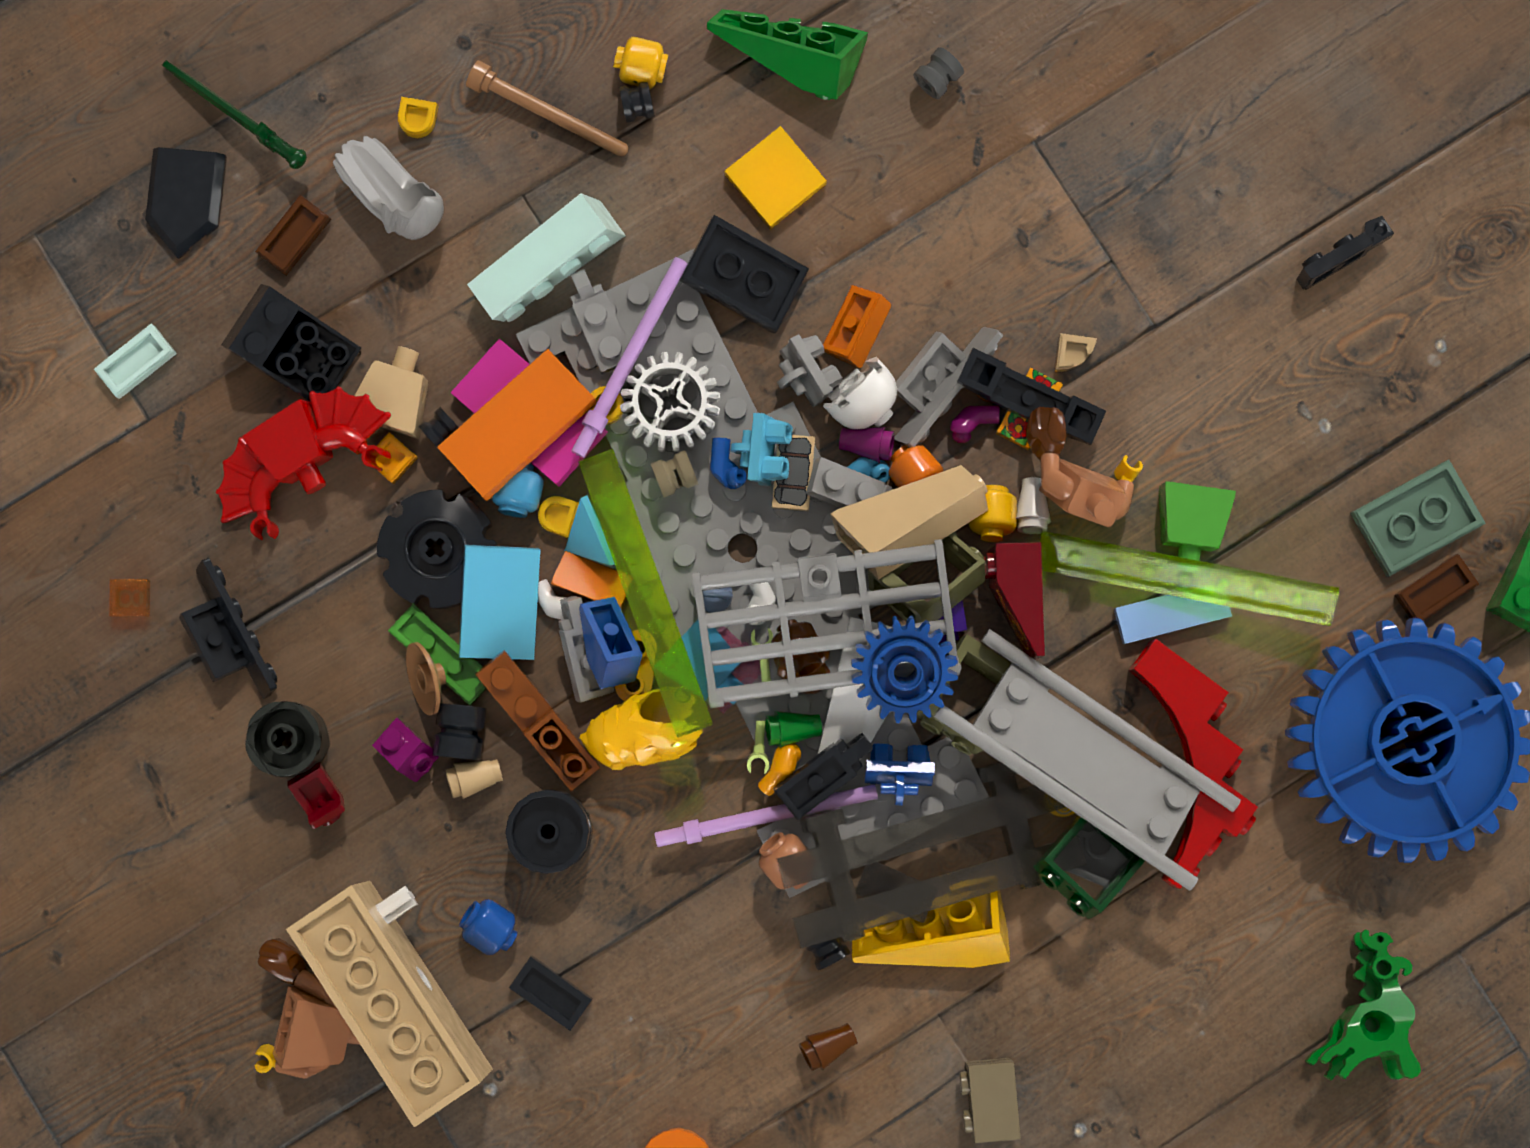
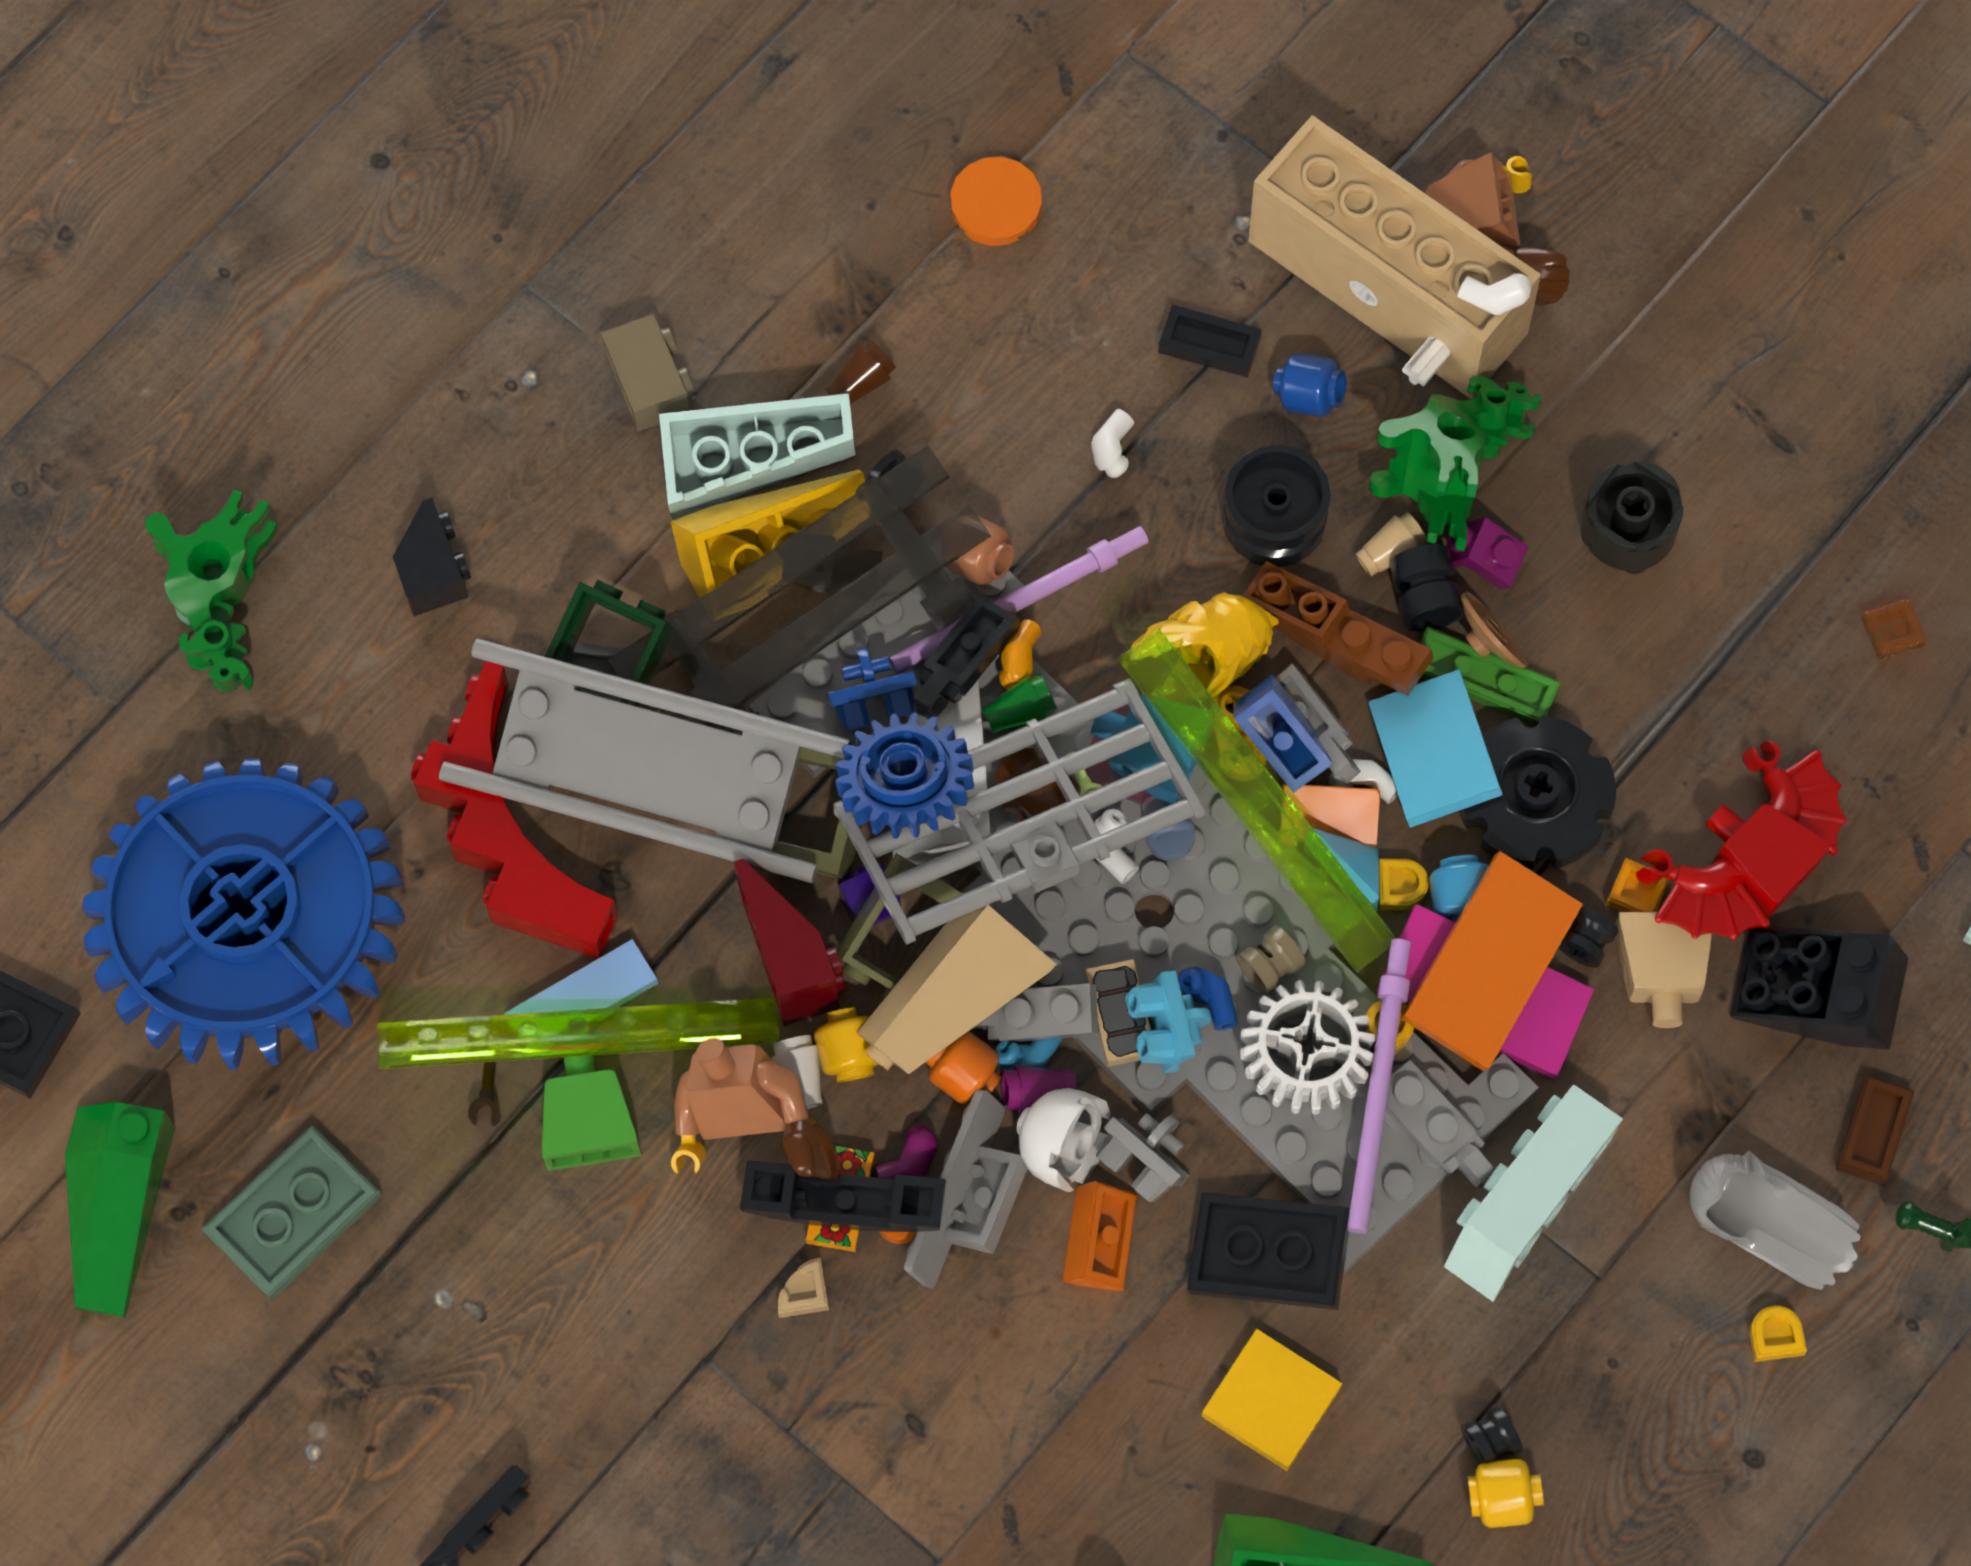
camera: 165 degrees right, 15 degrees down
(222, 636) = (1763, 612): black bracket -> none
(317, 796) = (1566, 466): dark red bracket -> none
(326, 915) = (1497, 297): none -> white arm
(406, 824) = (1444, 447): none -> green animal
(484, 79) = (1704, 1408): medium nougat piece -> none
(658, 928) = (1107, 446): none -> white arm
(759, 747) = (1051, 666): yellowish green hand -> none
(941, 1007) = (749, 447): none -> light aqua wedge
(1200, 992) = (426, 563): none -> black slope
(1261, 555) = (486, 1095): none -> dark brown hand
(1437, 588) = (245, 1129): reddish brown tile -> none

